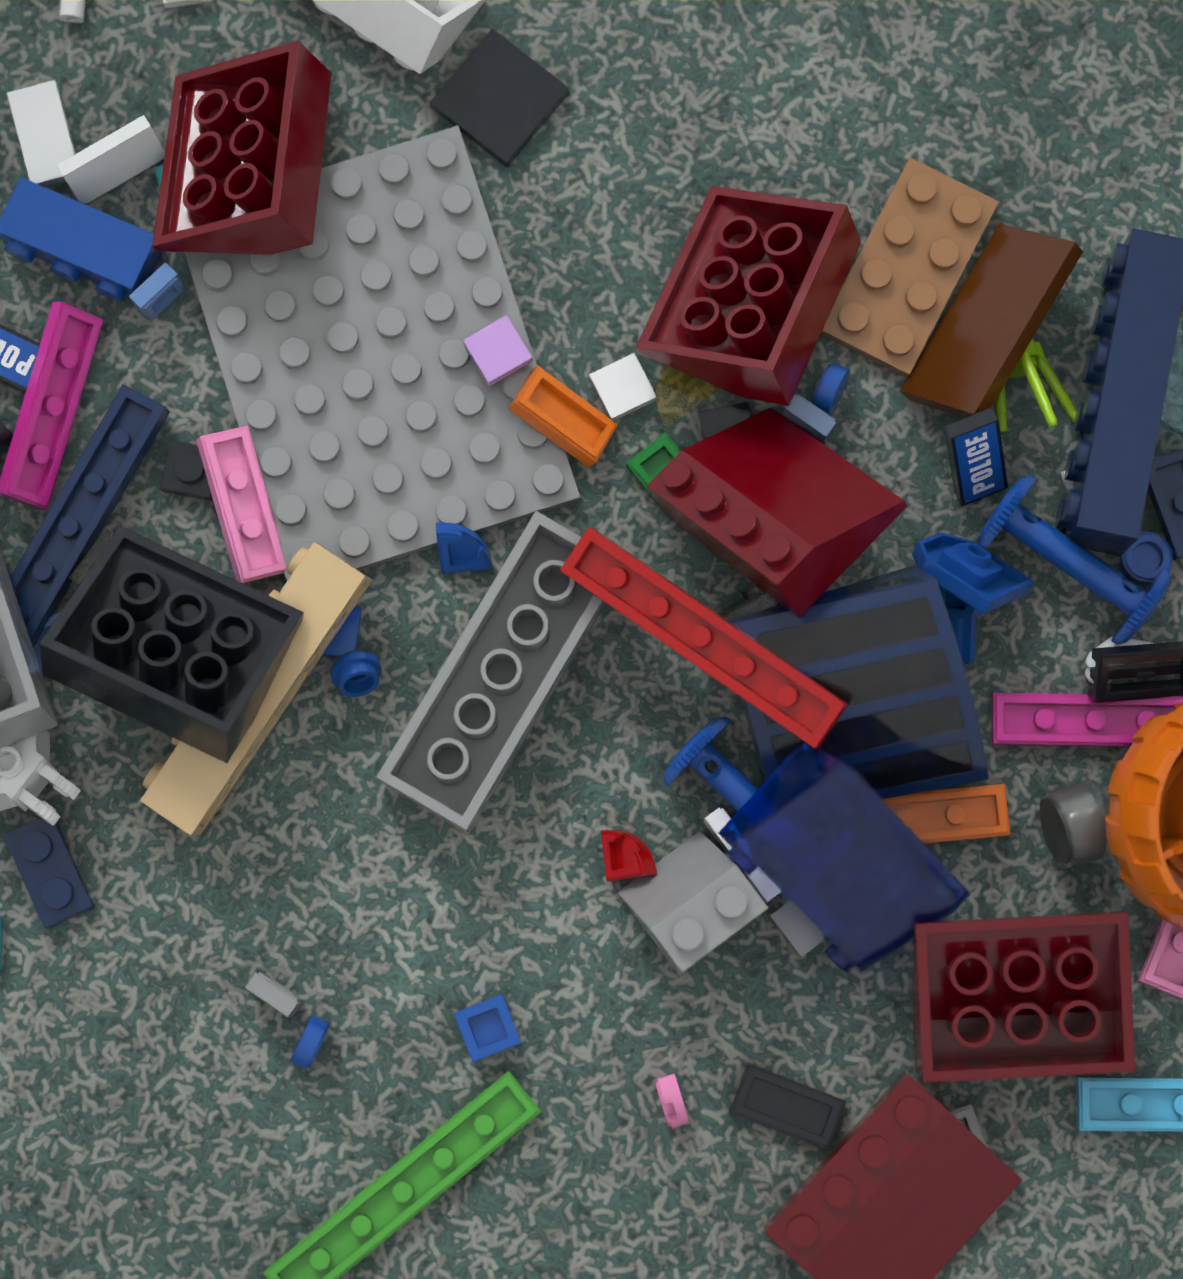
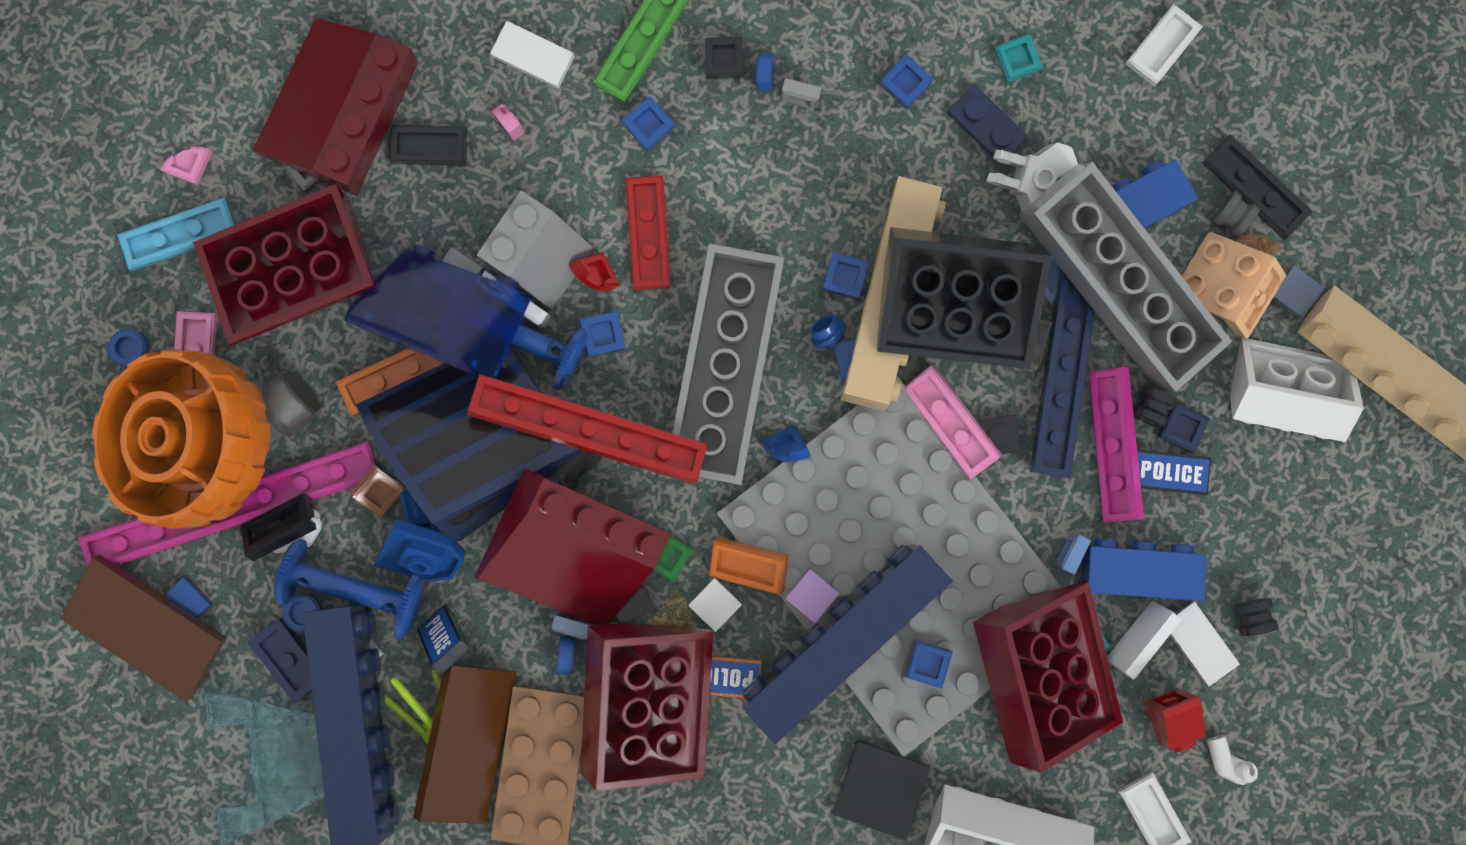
camera: 160 degrees right, 5 degrees up
(110, 54) = (1176, 719): none -> red slope
(131, 963) = (906, 81): none -> blue plate
(306, 737) = (845, 275): none -> blue plate
(357, 1081) = (724, 57): none -> black plate
(385, 220) = (928, 664): none -> blue tile
(478, 275) = (844, 642): none -> dark blue brick
(539, 886) = (648, 233): none -> red tile
(608, 1179) = (532, 54): none -> white tile
(627, 290) = (732, 675): none -> tile
(643, 772) = (603, 334): none -> blue plate
(1000, 675) = (377, 490): none -> nougat tile
(1114, 1195) = (188, 164): none -> bright pink tile

